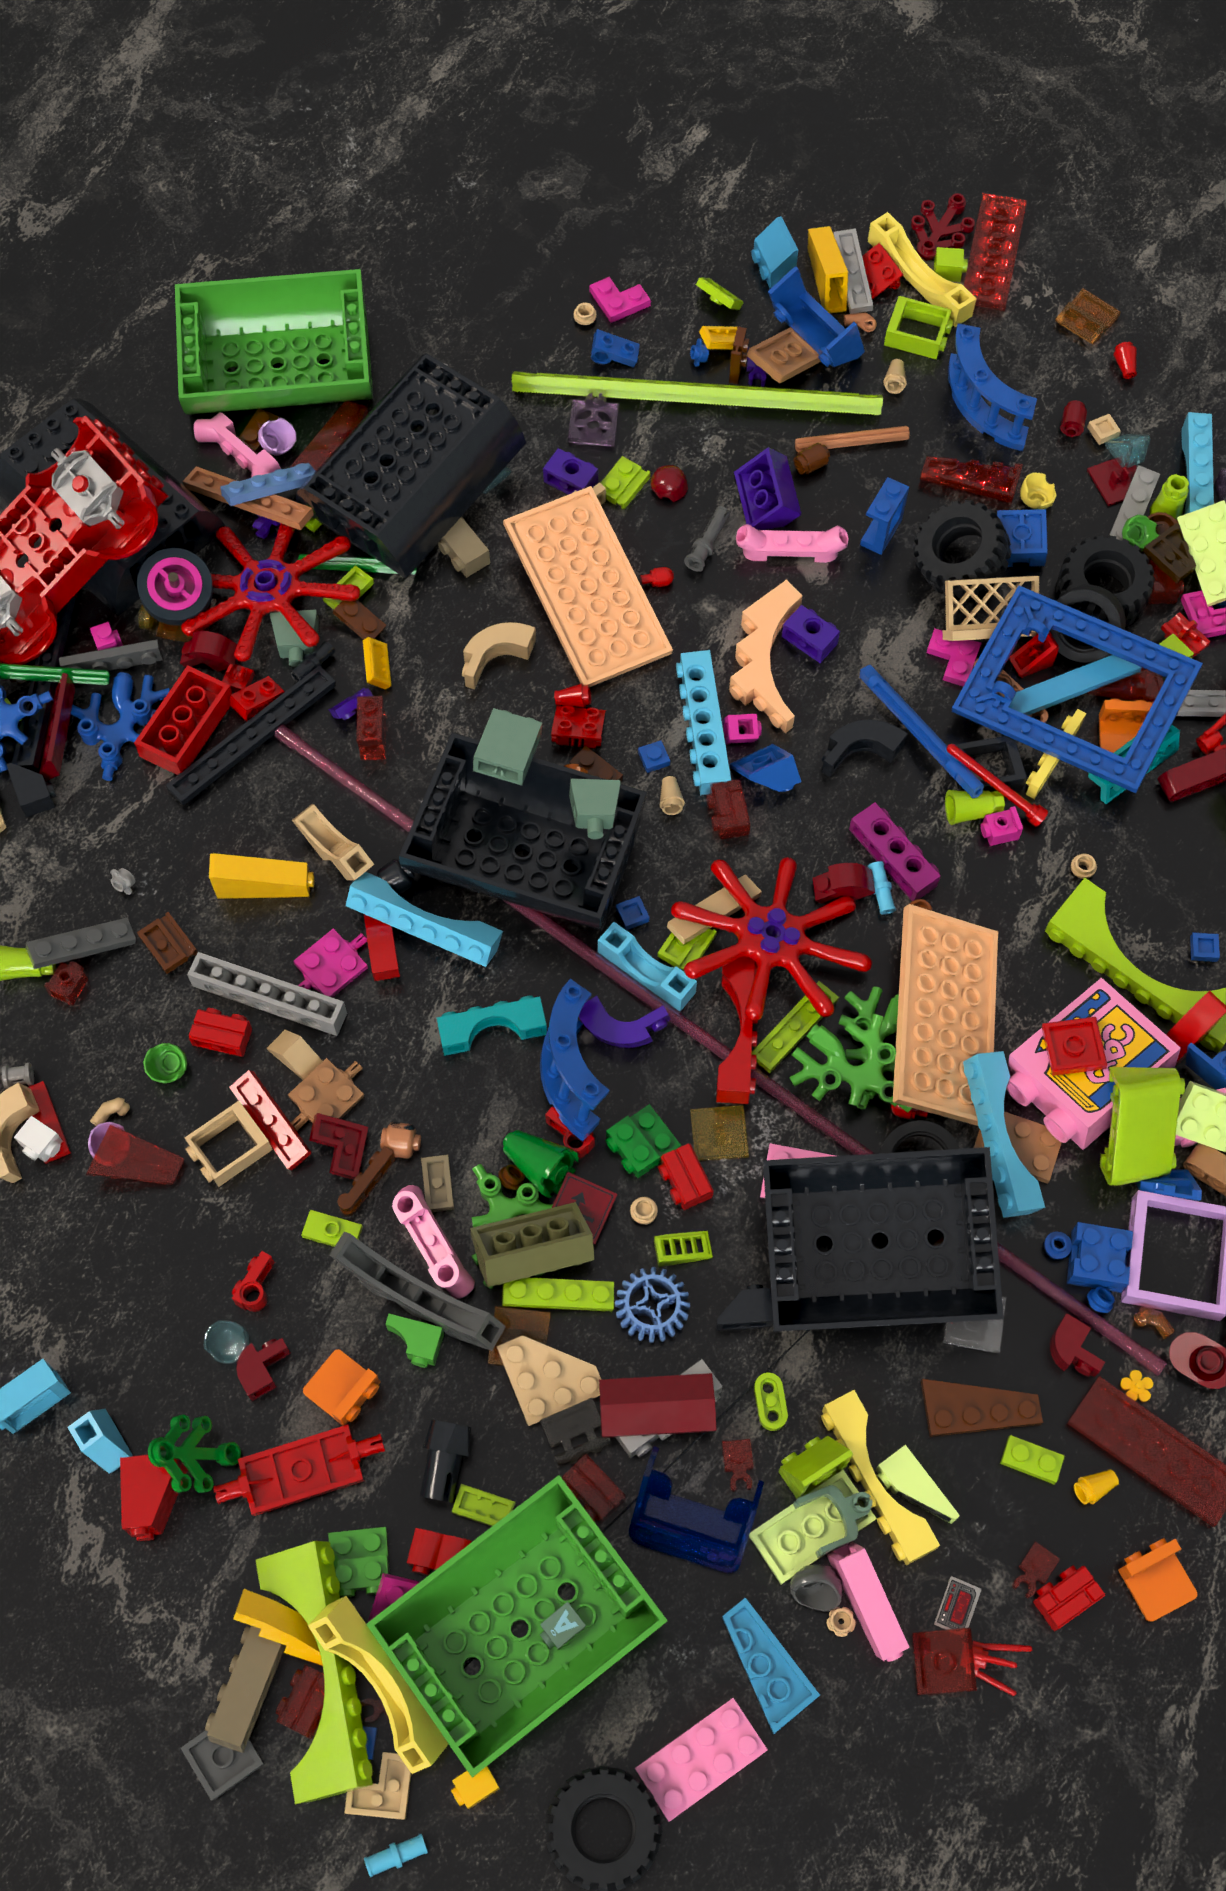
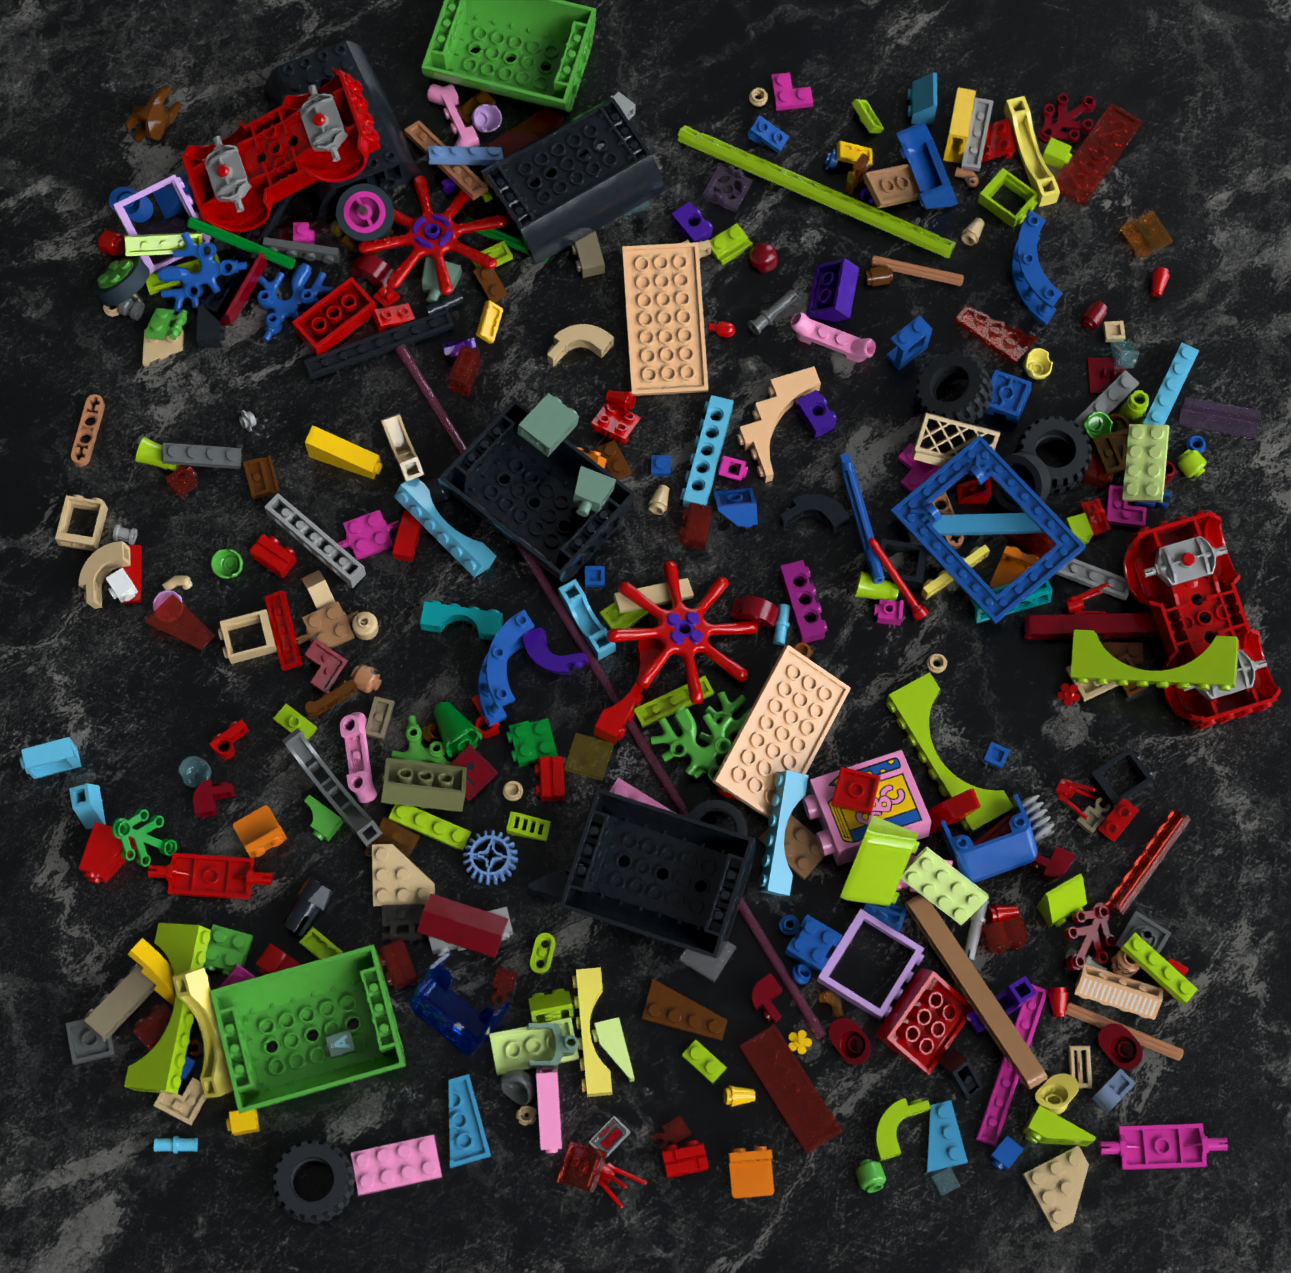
camera: 20 degrees right, 5 degrees up
(373, 1075) = (365, 625): none -> tan head

